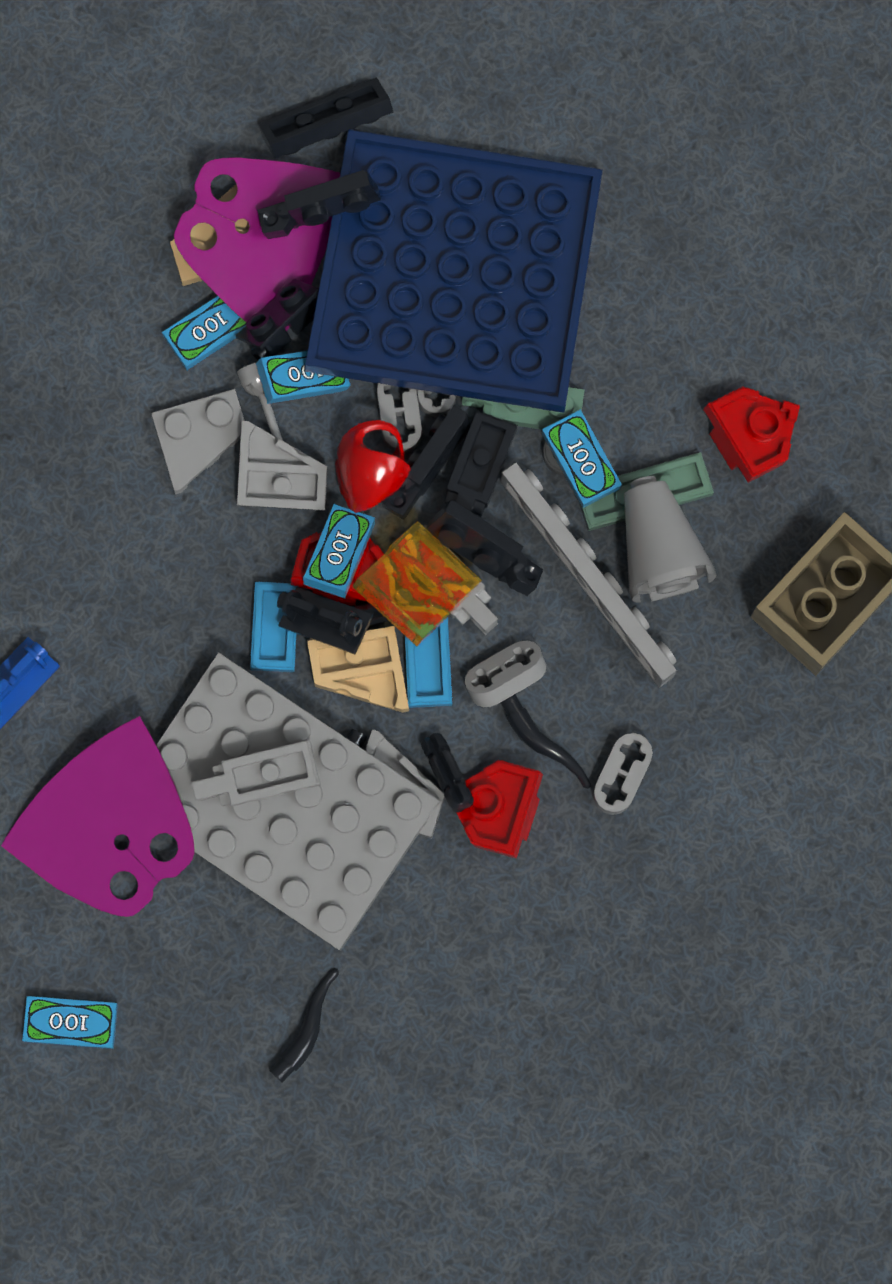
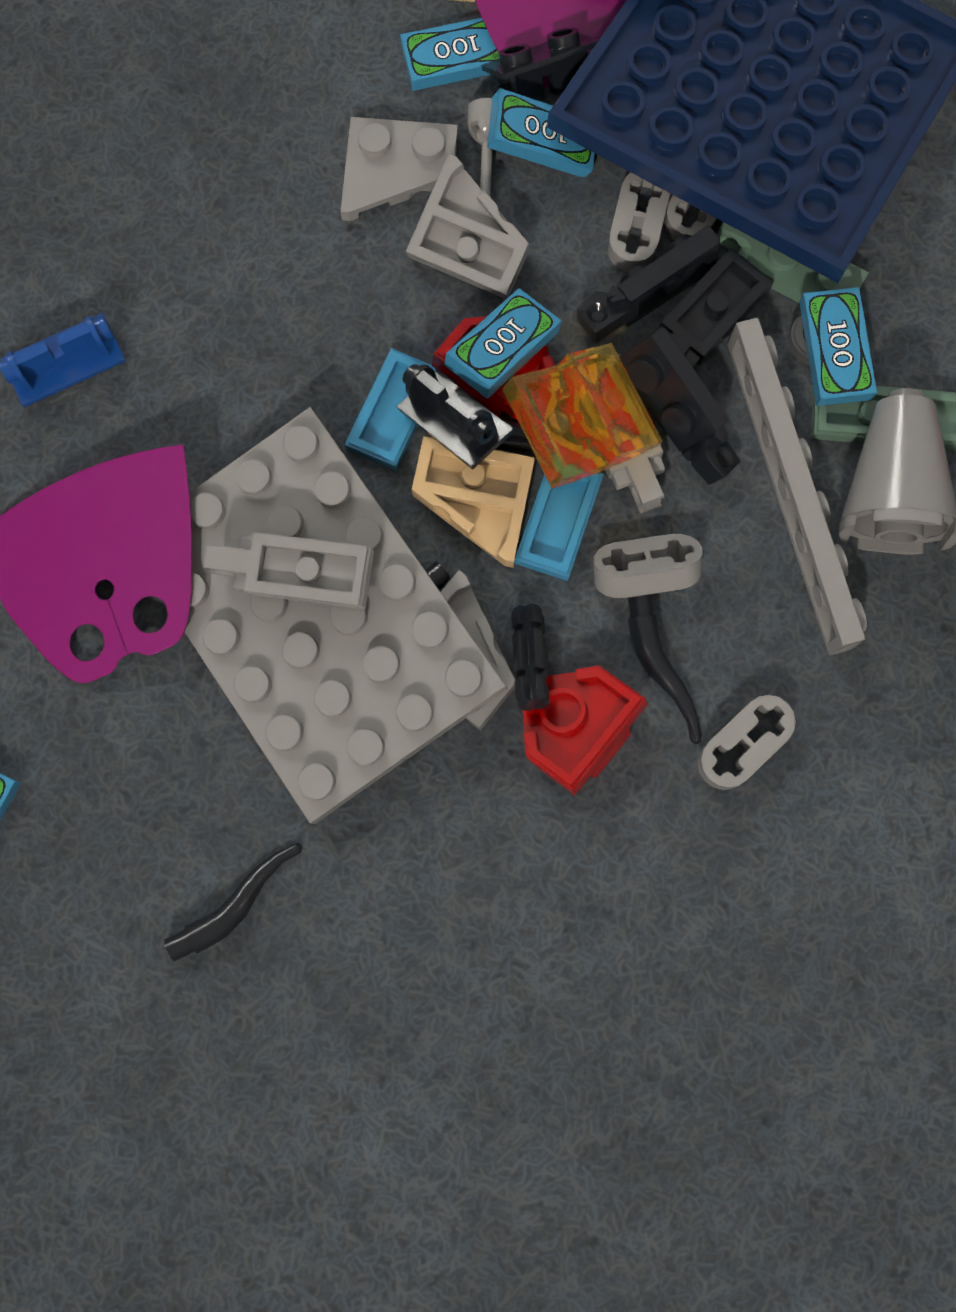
camera: 25 degrees right, 0 degrees up
(366, 474) = (577, 260): red piece -> none

